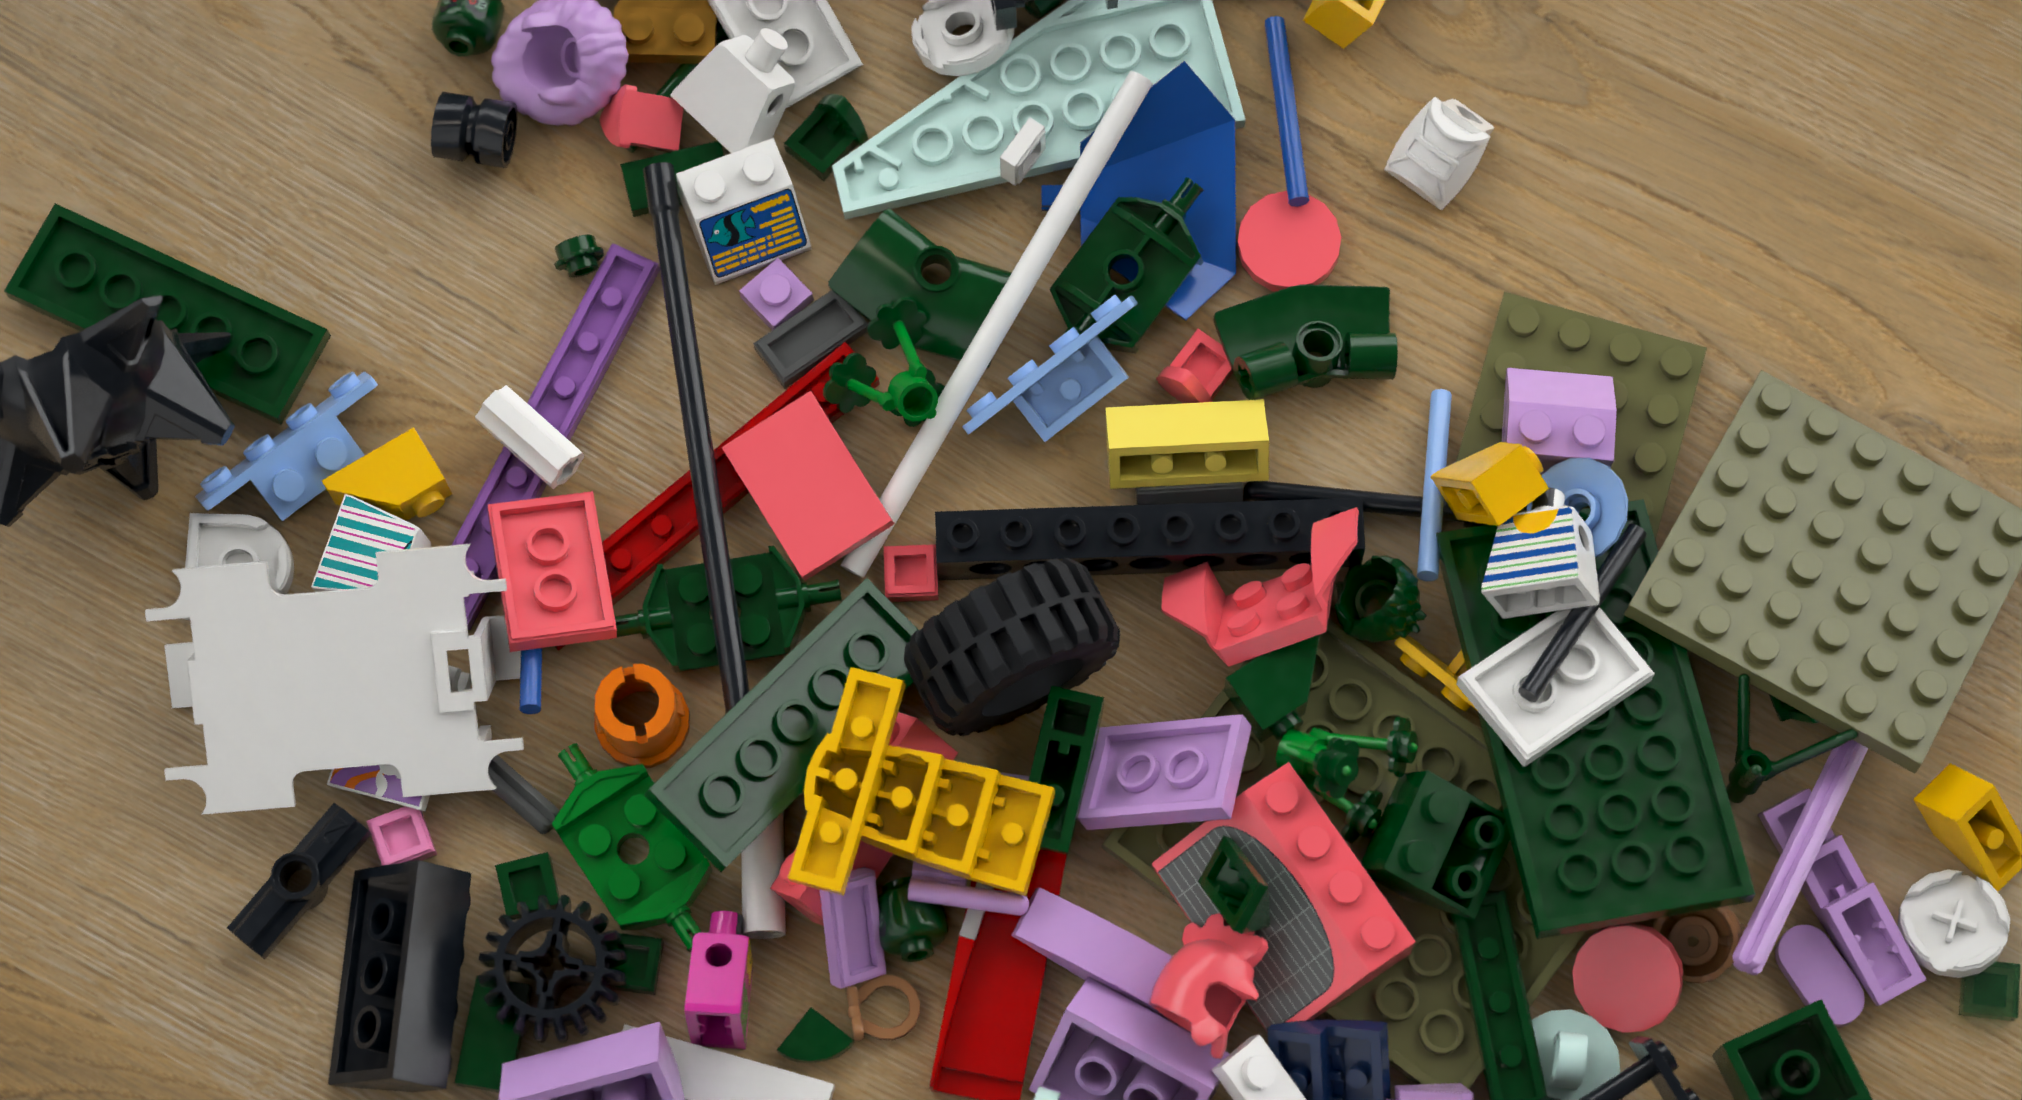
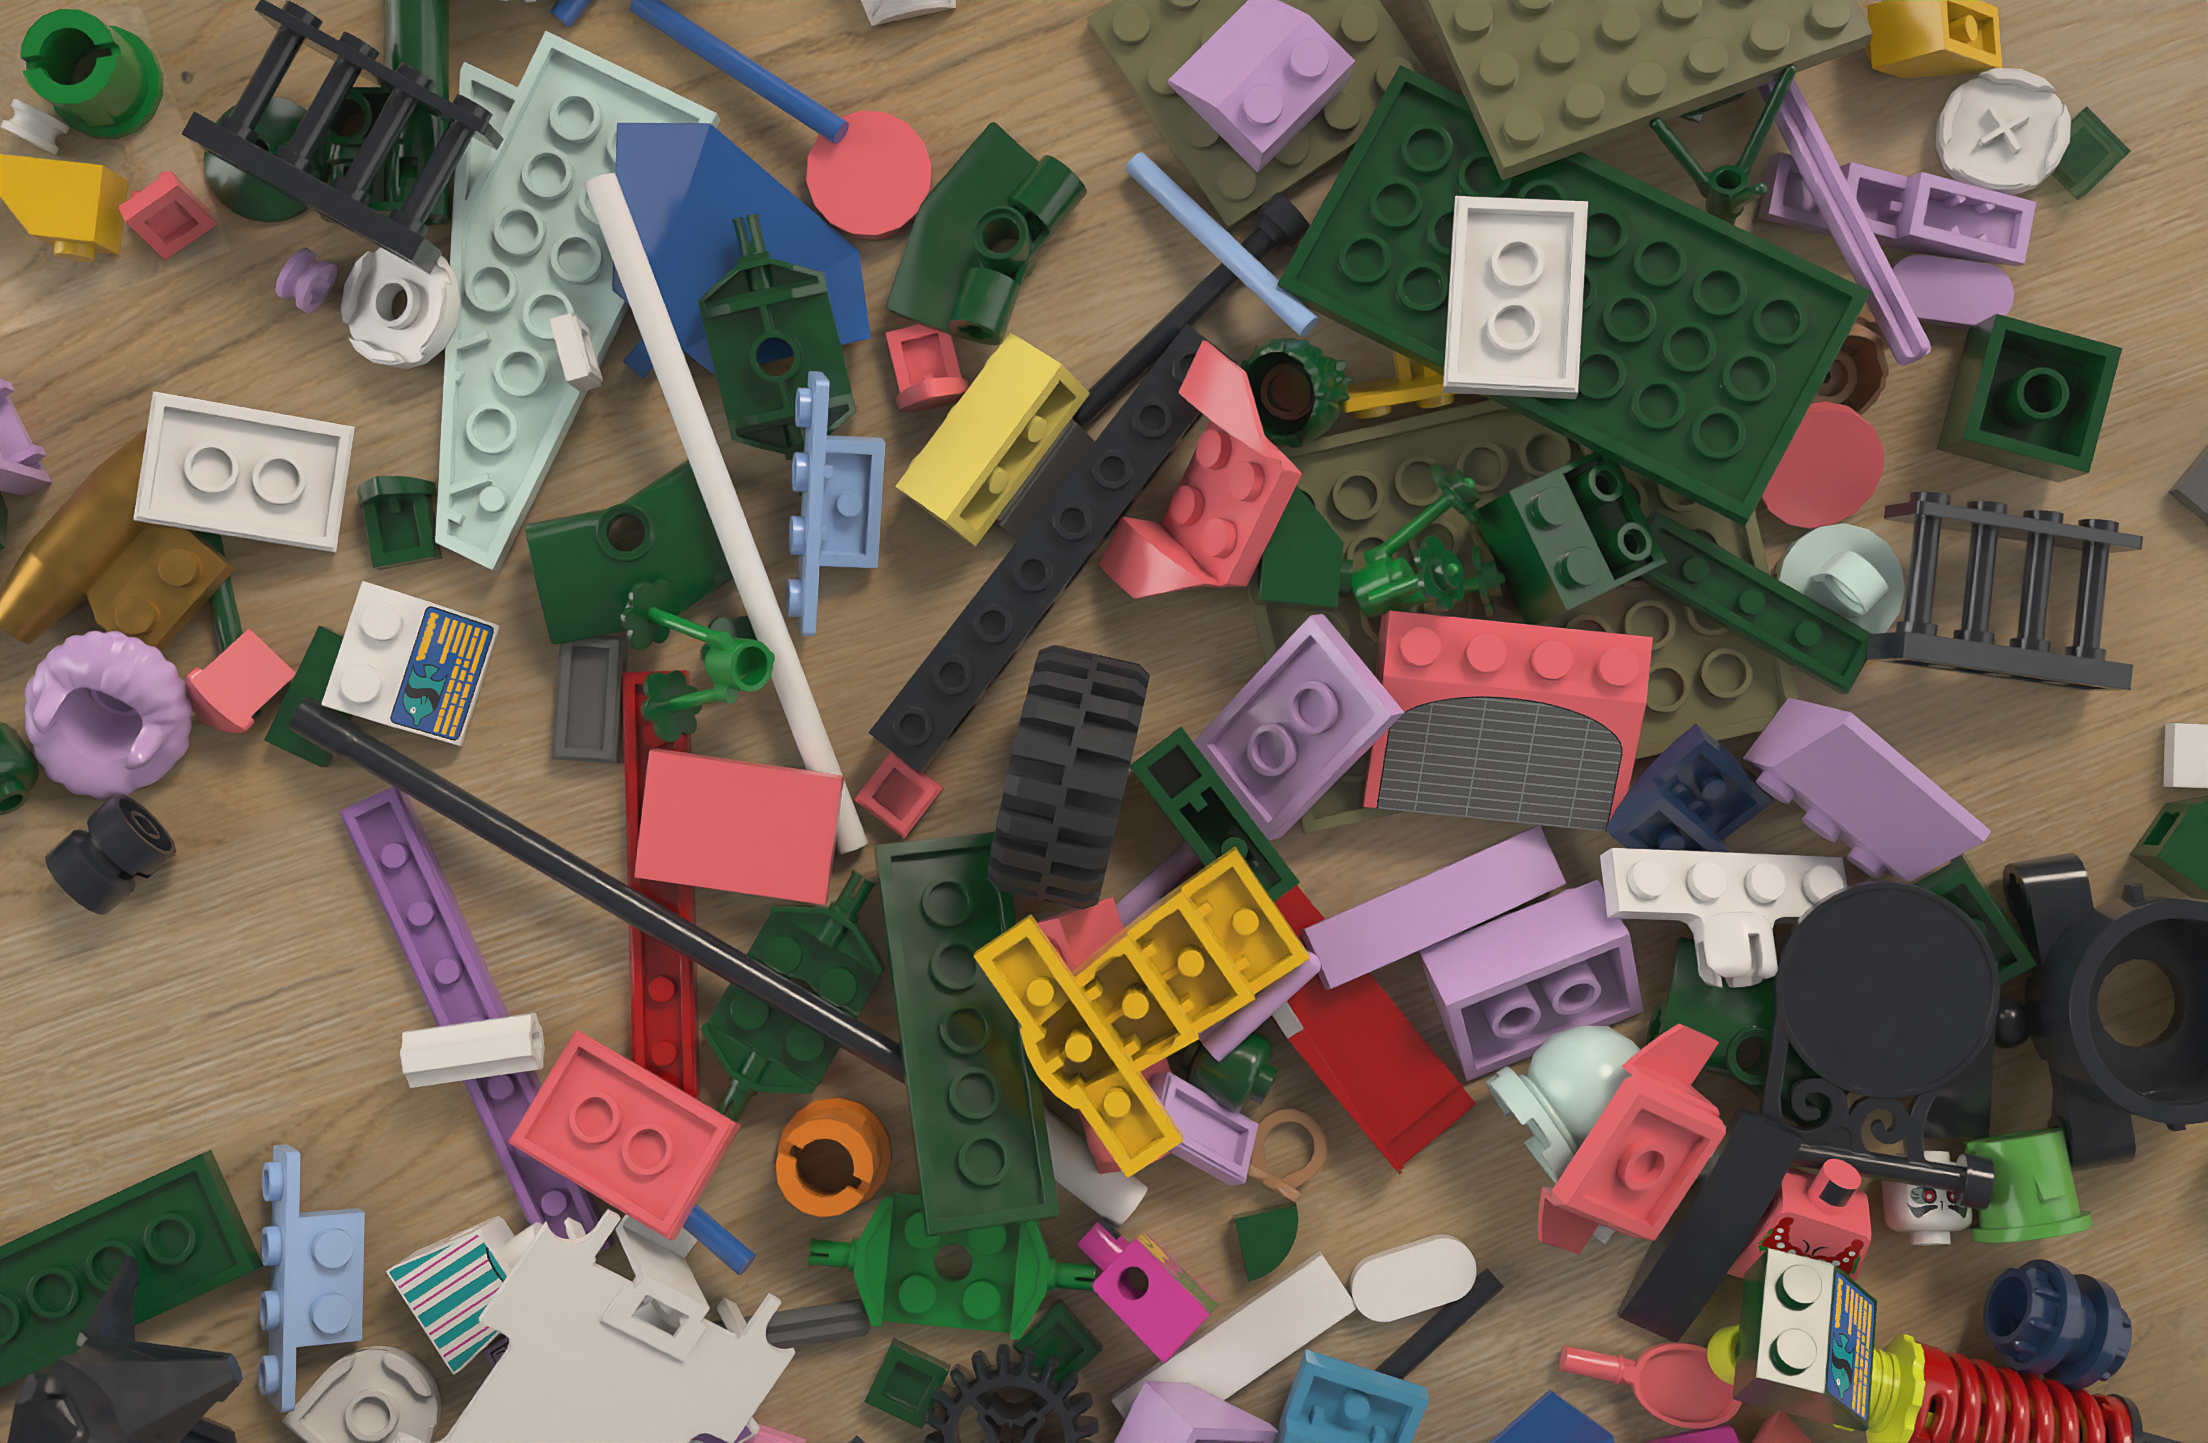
camera: 50 degrees left, 15 degrees up
(394, 478) = (407, 1203): yellow slope -> none
(578, 255) = (325, 853): dark green plate -> none
(739, 90) = (284, 571): white torso -> none
(776, 294) = (520, 697): lavender plate -> none
(1209, 981) = (1525, 850): coral piece -> none
(1236, 888) = (1469, 763): dark green slope -> none
(1492, 483) = (1284, 193): yellow slope -> none
(1542, 561) = (1398, 210): white torso -> none
(1580, 617) = (1478, 218): black bar -> none
(1593, 485) = (1349, 158): light blue dish -> none

